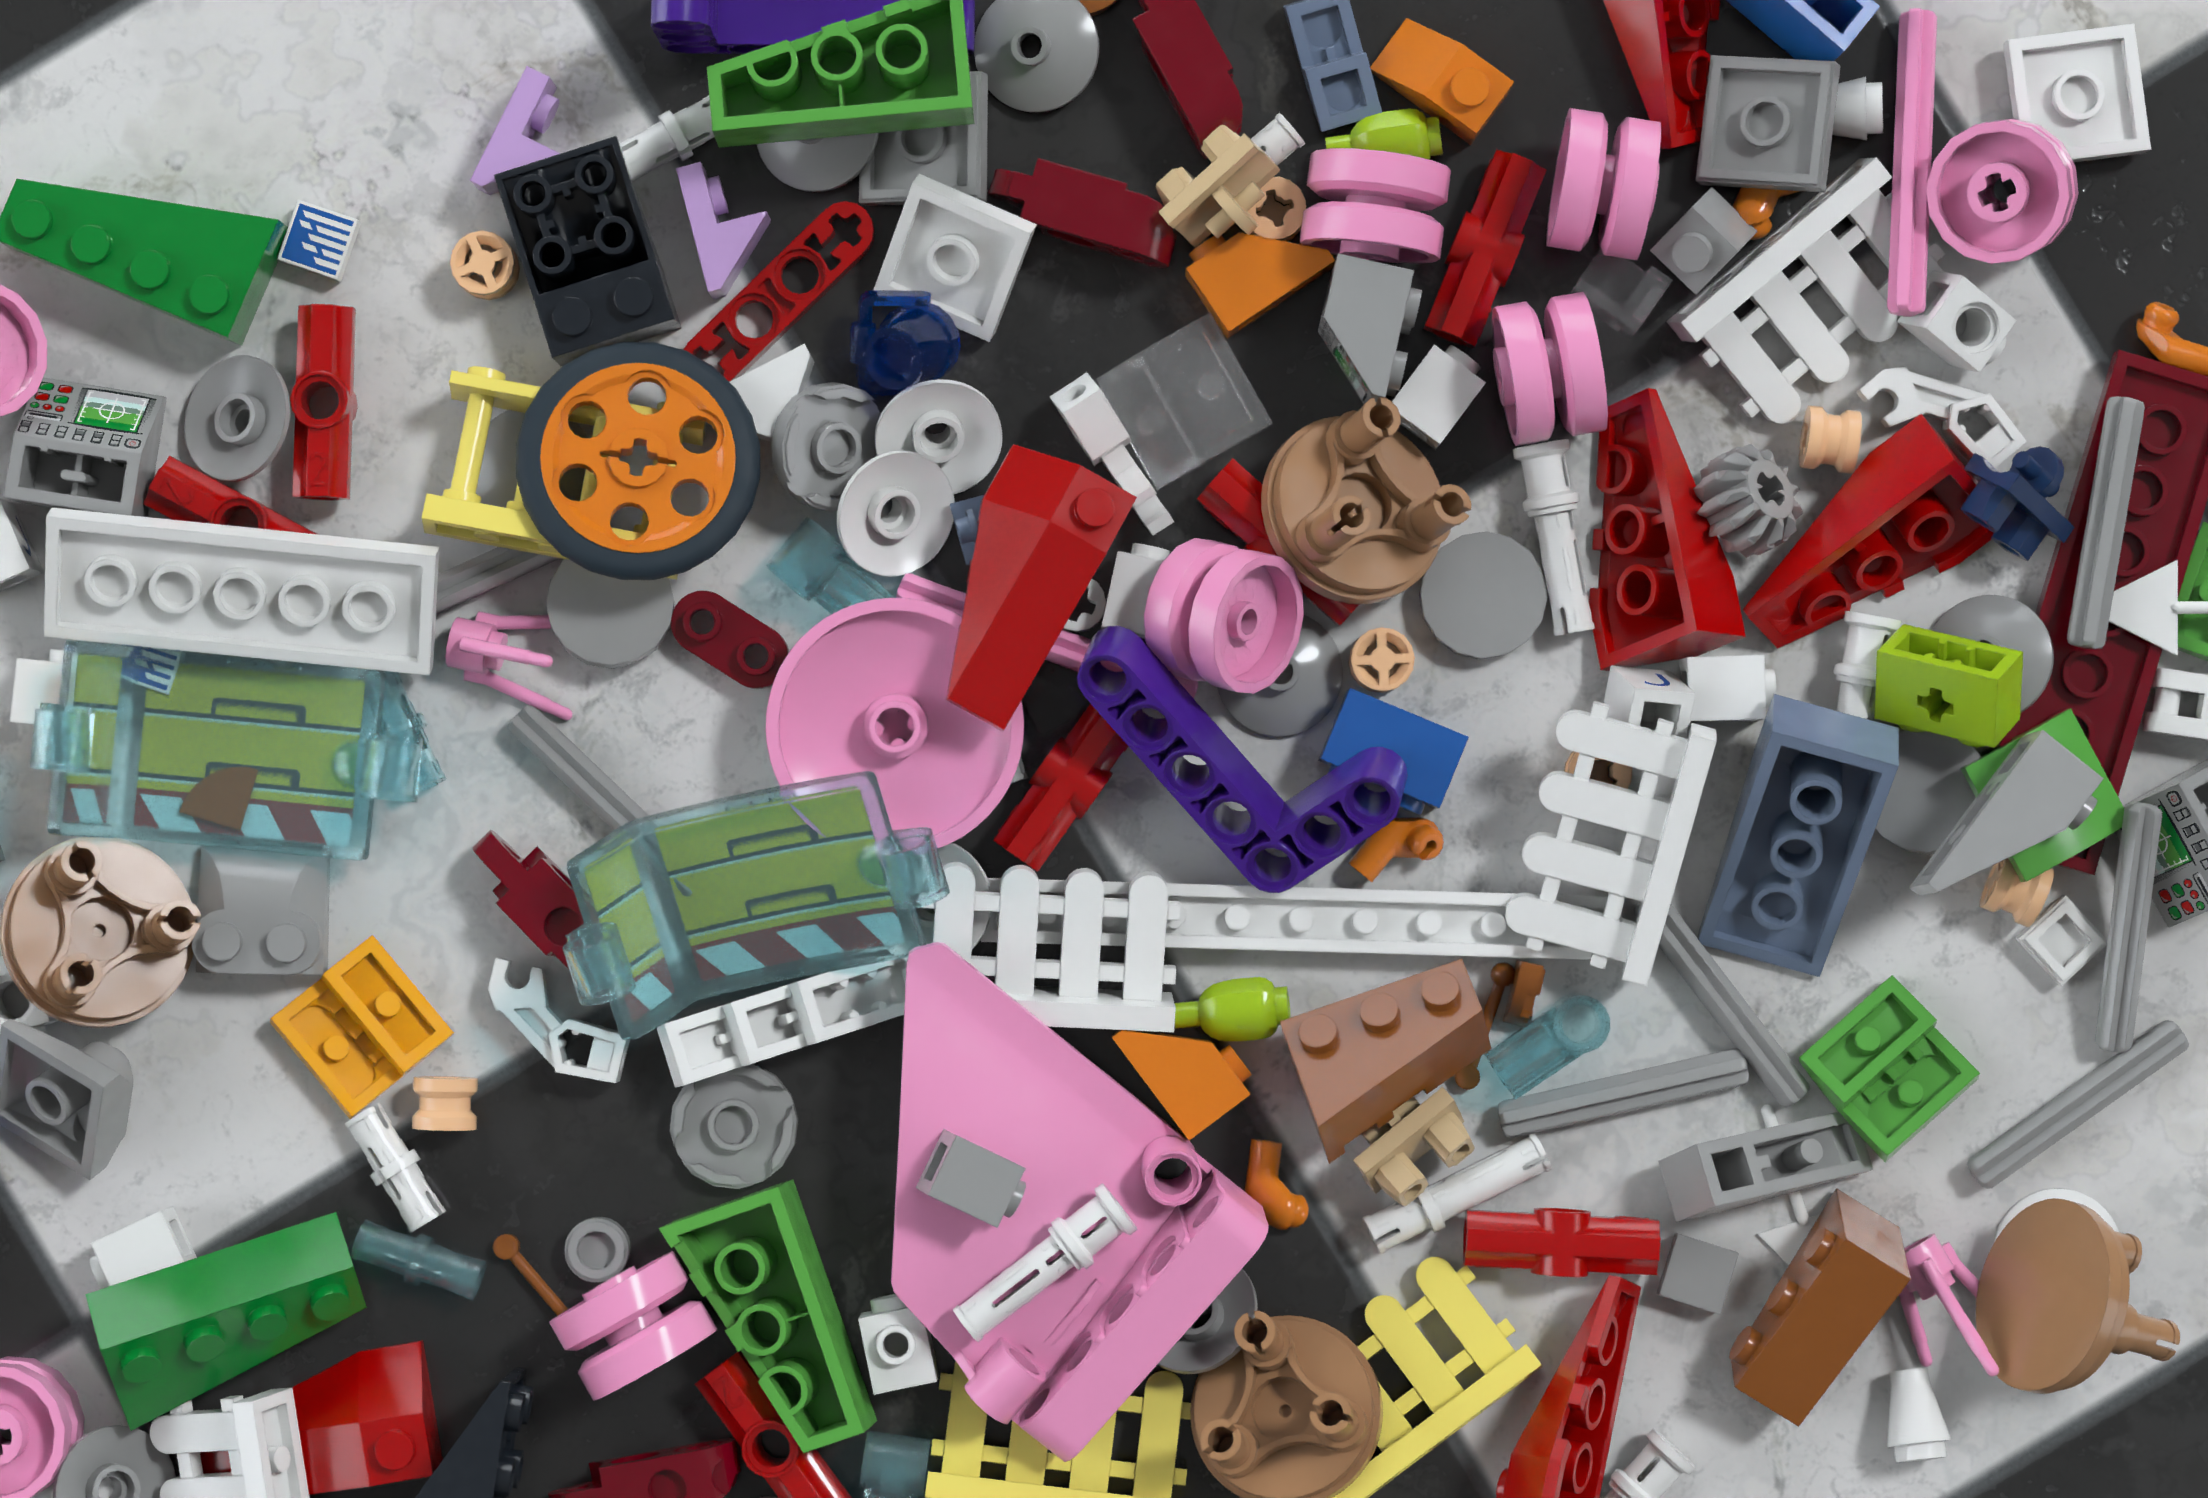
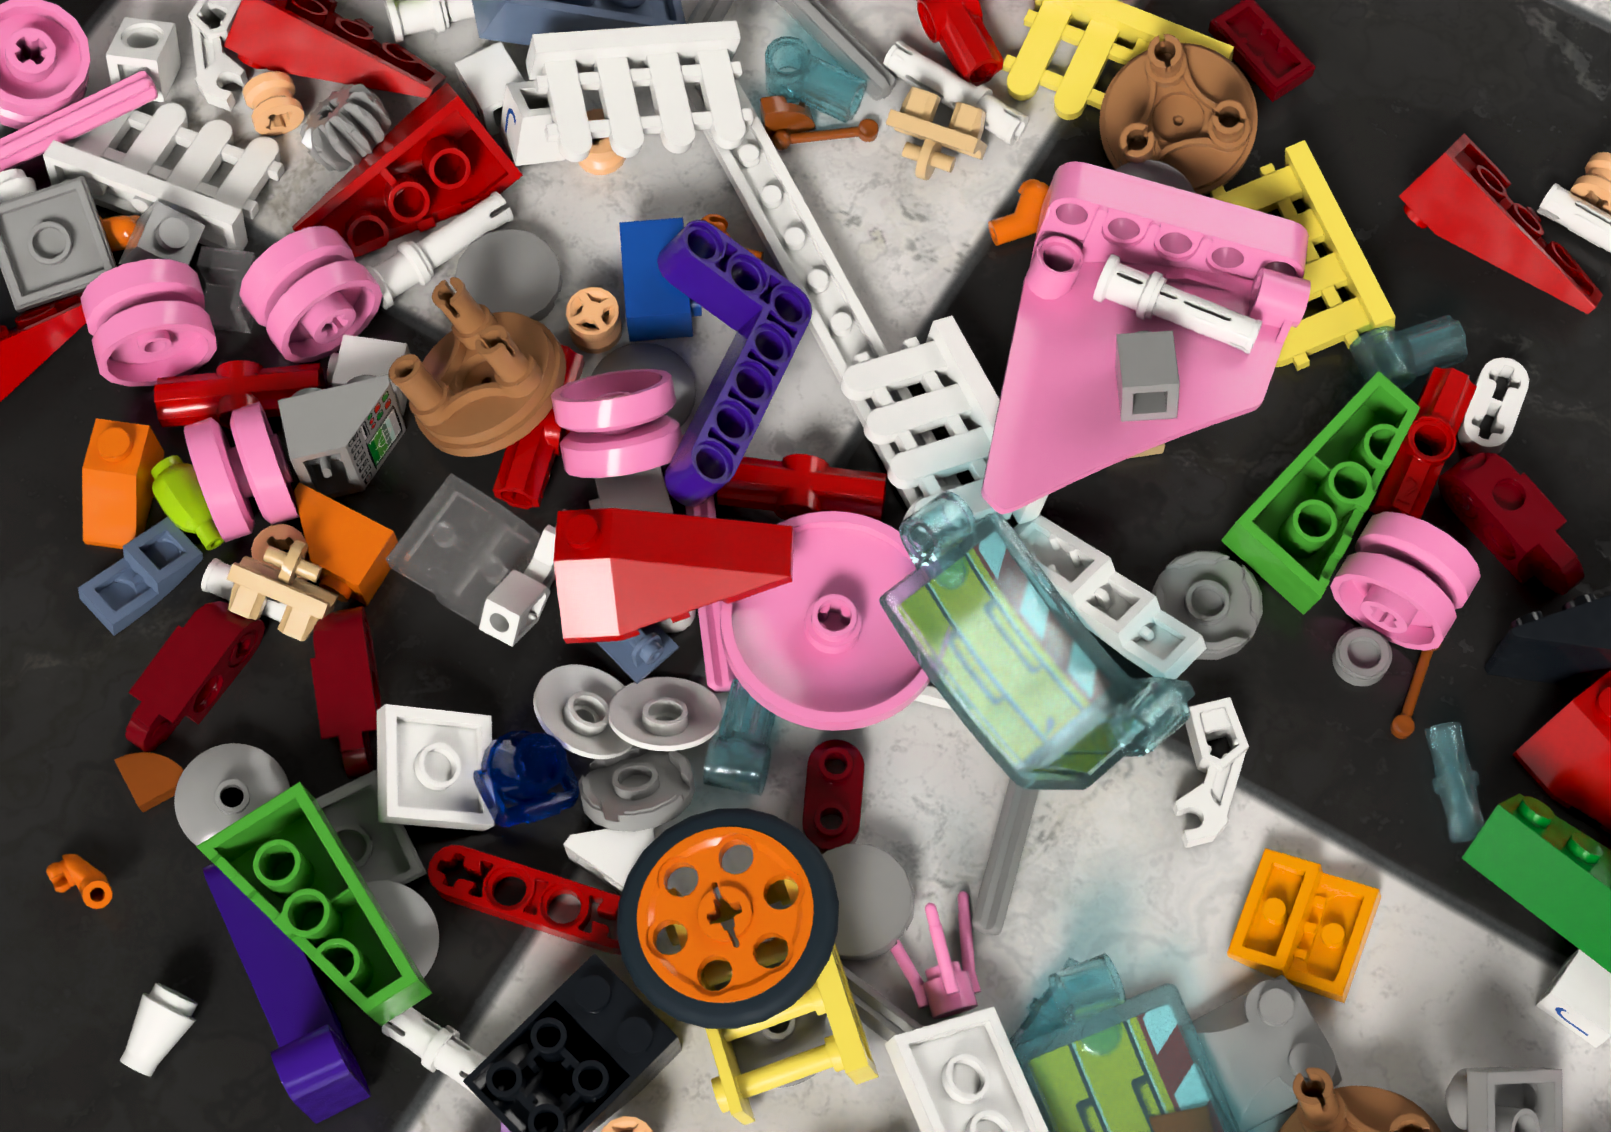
camera: 115 degrees left, 20 degrees down
(395, 1167) = (1397, 837): white pin -> none
(444, 1103) = (1324, 822): light nougat wheel -> none
(532, 893) = (1124, 823): dark red piece -> none
(723, 245) = (518, 963): lavender slope -> none
(896, 1346) = (1298, 400): white brick -> none
(1187, 1076) = (980, 296): orange slope -> none
(1237, 1009) = (907, 289): lime plant -> none
(1383, 1049) = (884, 177): wedge -> none

